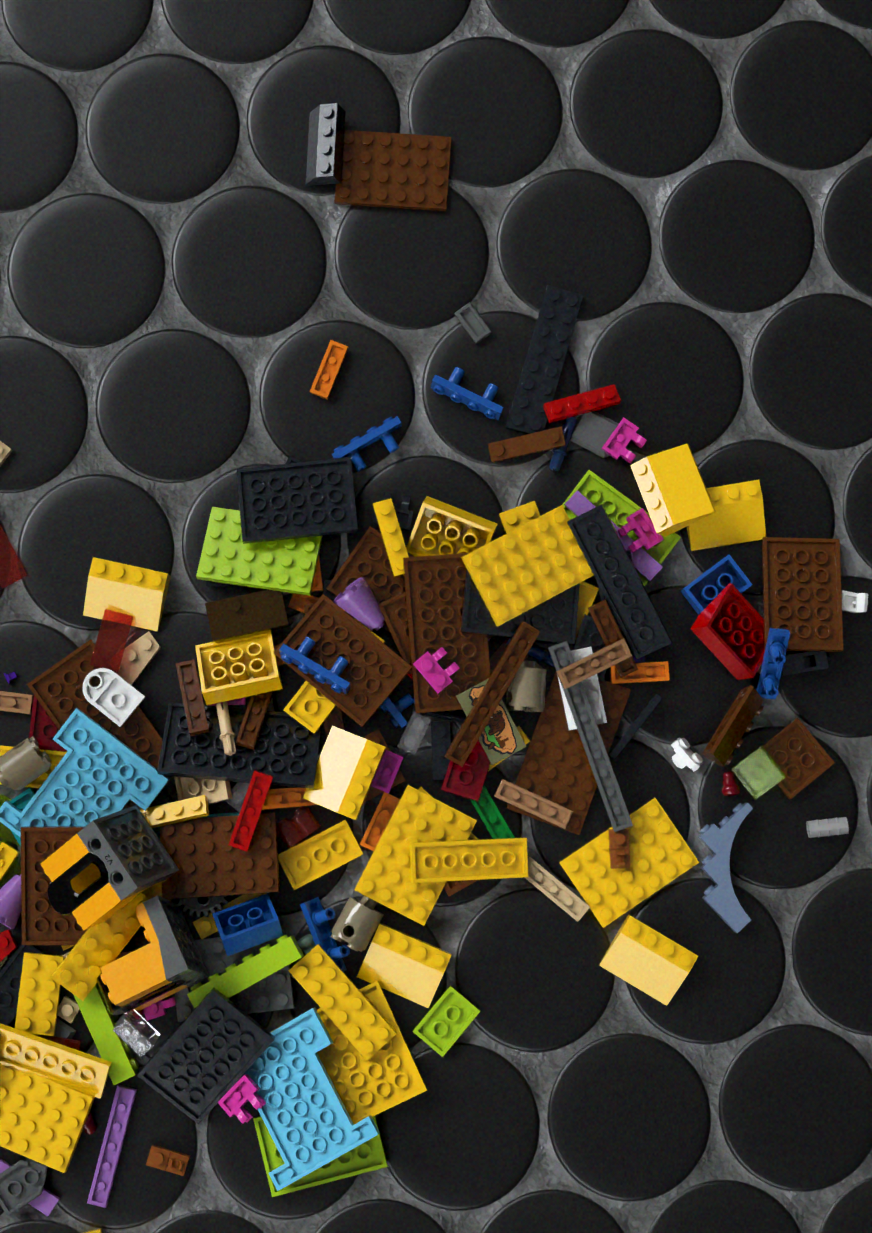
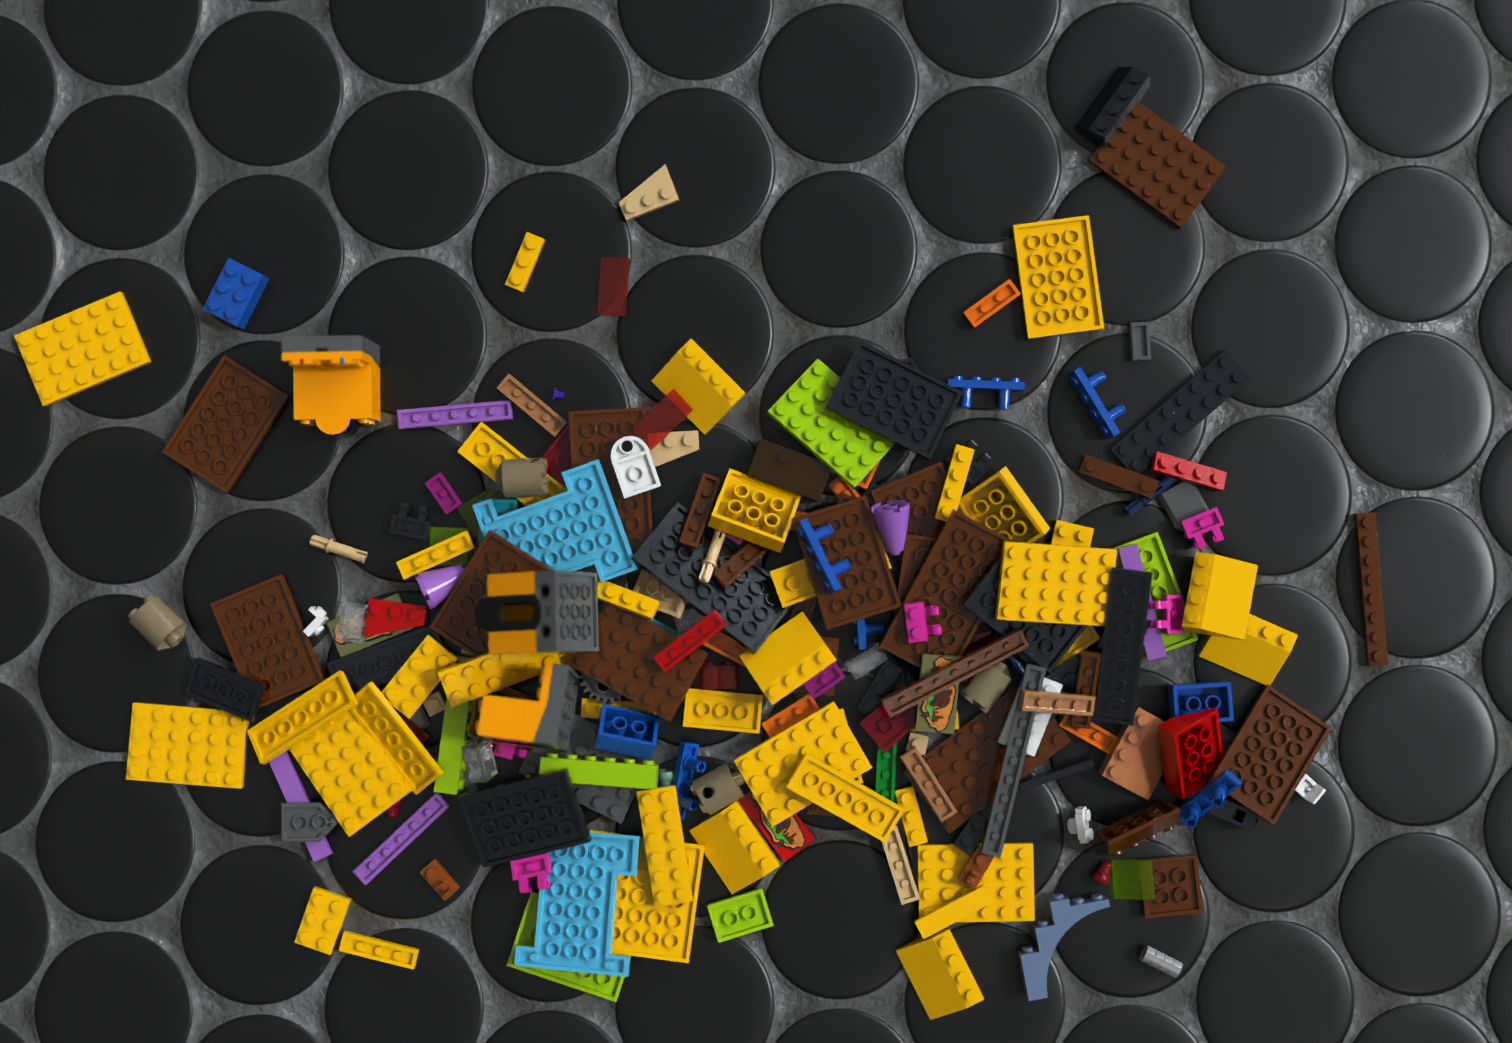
camera: 30 degrees right, 5 degrees up
(370, 313) = (1058, 277): none -> yellow plate
(442, 926) = (785, 837): none -> tile
(503, 773) = (917, 740): none -> tan plate
(538, 841) = (911, 816): none -> yellow plate
(597, 823) = (971, 834): none -> black plate
(624, 899) = (952, 911): none -> yellow tile
(693, 668) = (1136, 756): none -> nougat slope
(797, 404) = (1371, 589): none -> reddish brown plate

